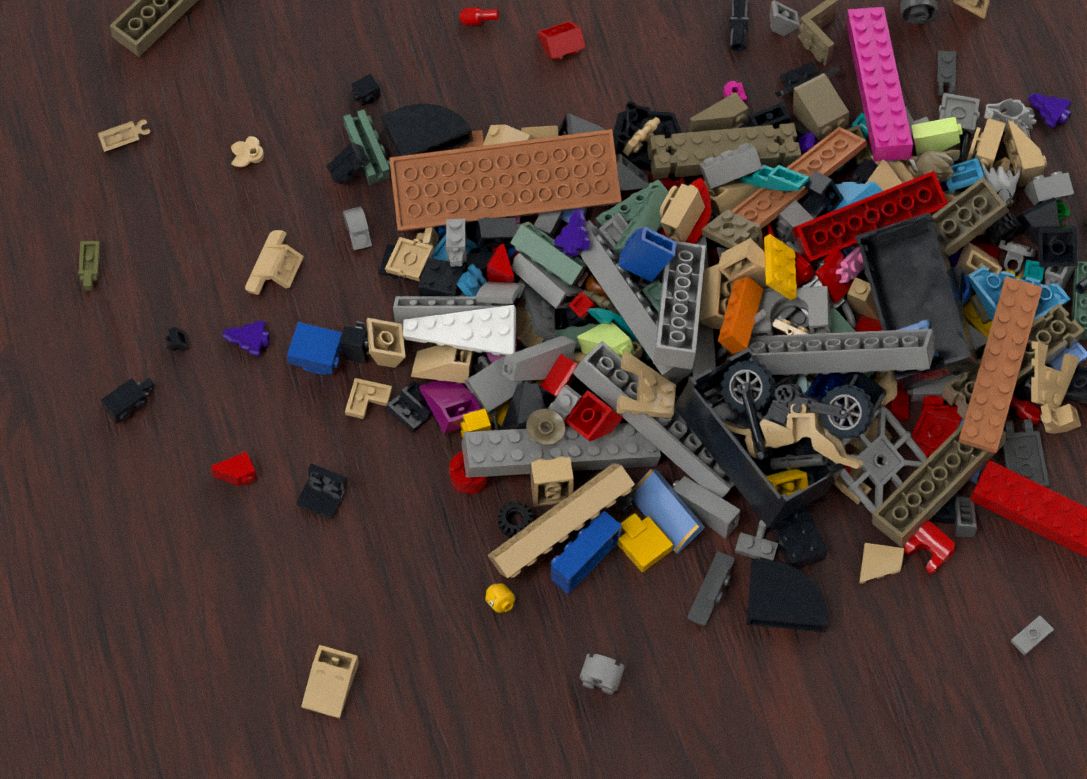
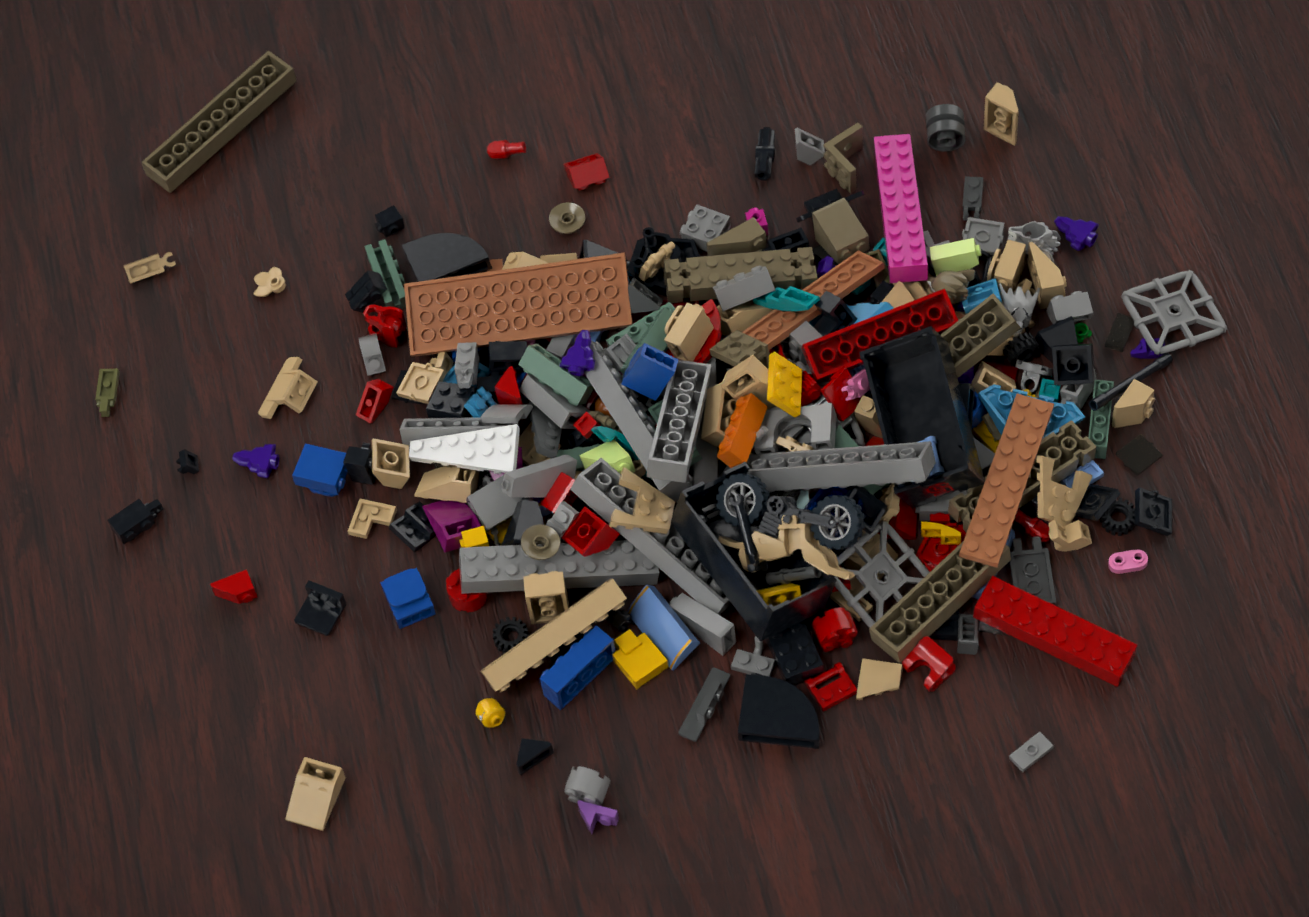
camera: 10 degrees right, 5 degrees down
(362, 276) = (374, 400): none -> red slope
(374, 196) = (389, 322): none -> red piece
(410, 480) = (407, 597): none -> blue brick
(544, 638) = (531, 753): none -> black slope
(545, 82) = (567, 212): none -> dark tan dish
(607, 698) = (592, 813): none -> medium lavender slope
(684, 100) = (704, 226): none -> light grey brick
(836, 576) = (834, 692): none -> red plate
(837, 513) = (835, 629): none -> red brick
(941, 417) = (947, 534): none -> yellow slope

